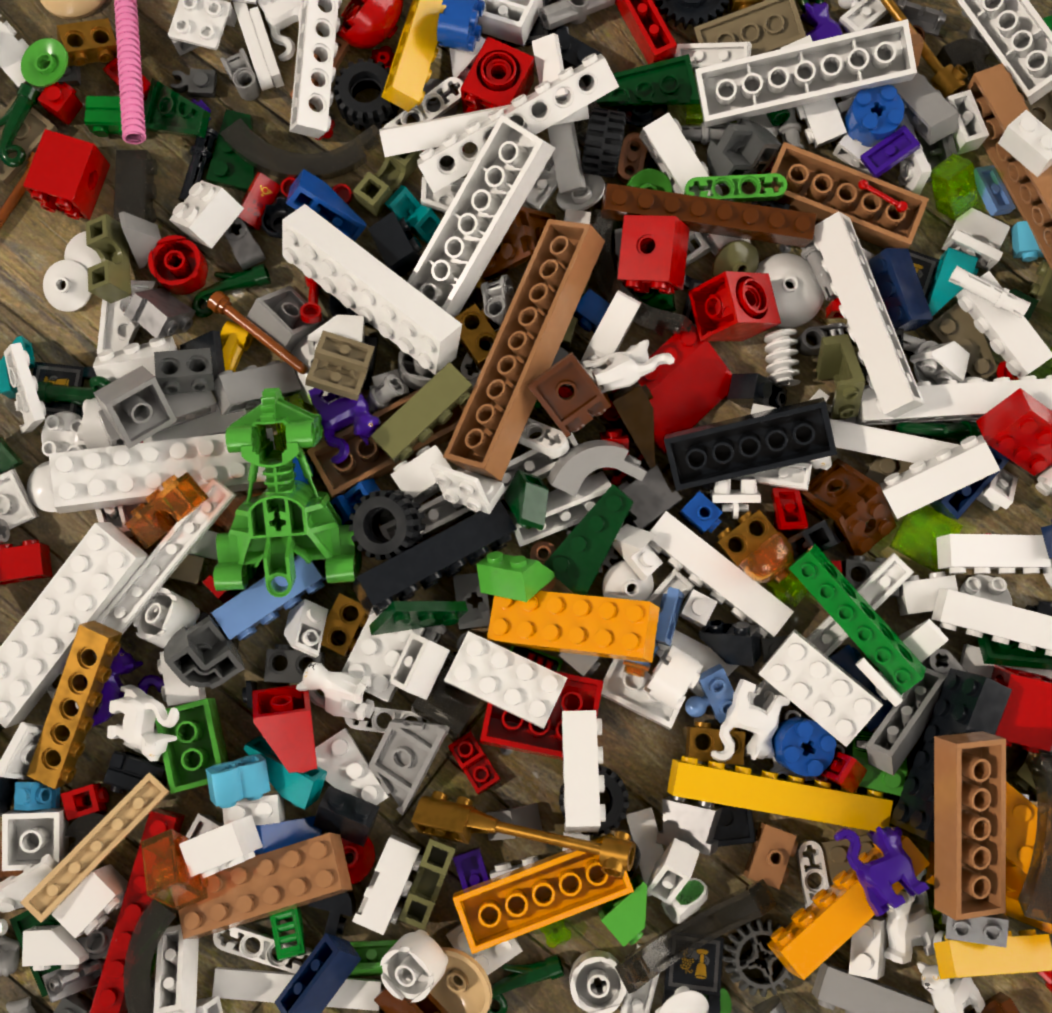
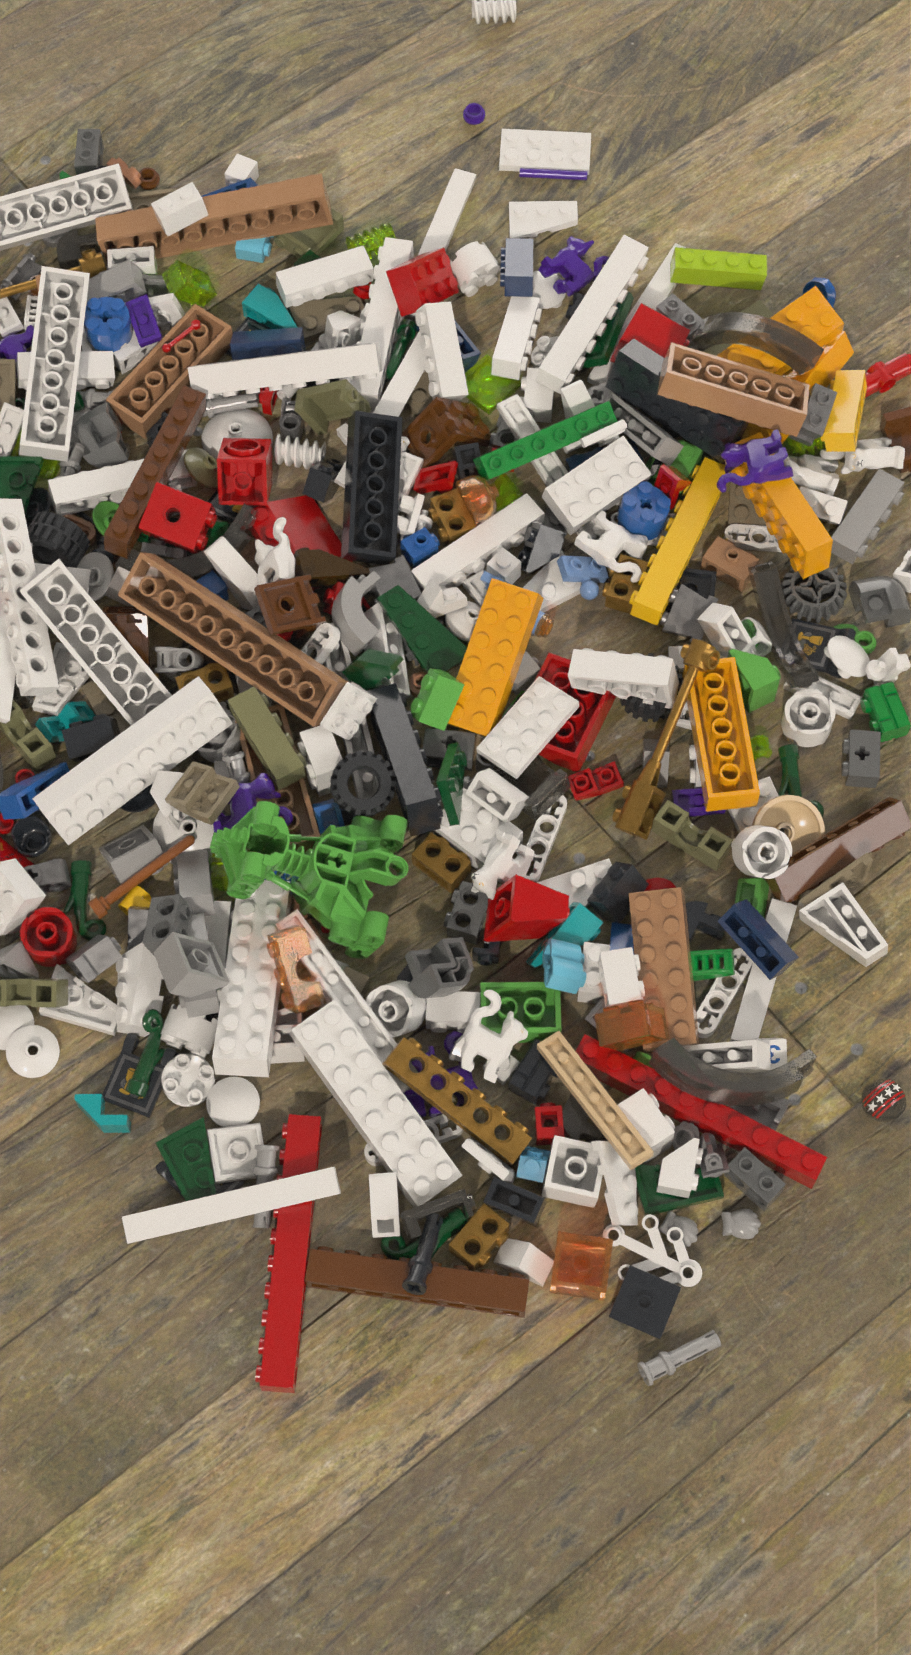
camera: 75 degrees left, 15 degrees down
(26, 398) = (133, 1095): white wing -> none
(224, 596) = (379, 962): red plate -> none
(258, 606) = (405, 924): medium blue piece -> none
(306, 627) = (435, 887): white slope -> none
(311, 311) = (135, 823): red bar -> none
(388, 885) = (686, 868): white wedge -> none
(406, 757) = (577, 830): light grey wing -> none
(629, 693) = (567, 631): white wing -> none
(673, 676) = (561, 594): white brick -> none
(734, 183) = (135, 444): bright green beam -> none
(978, 236) = (237, 280): white bracket -> none
(990, 292) = (290, 279): white pin -> none
(993, 191) = (203, 259): medium blue plate -> none
(999, 491) = (466, 318): white slope -> none

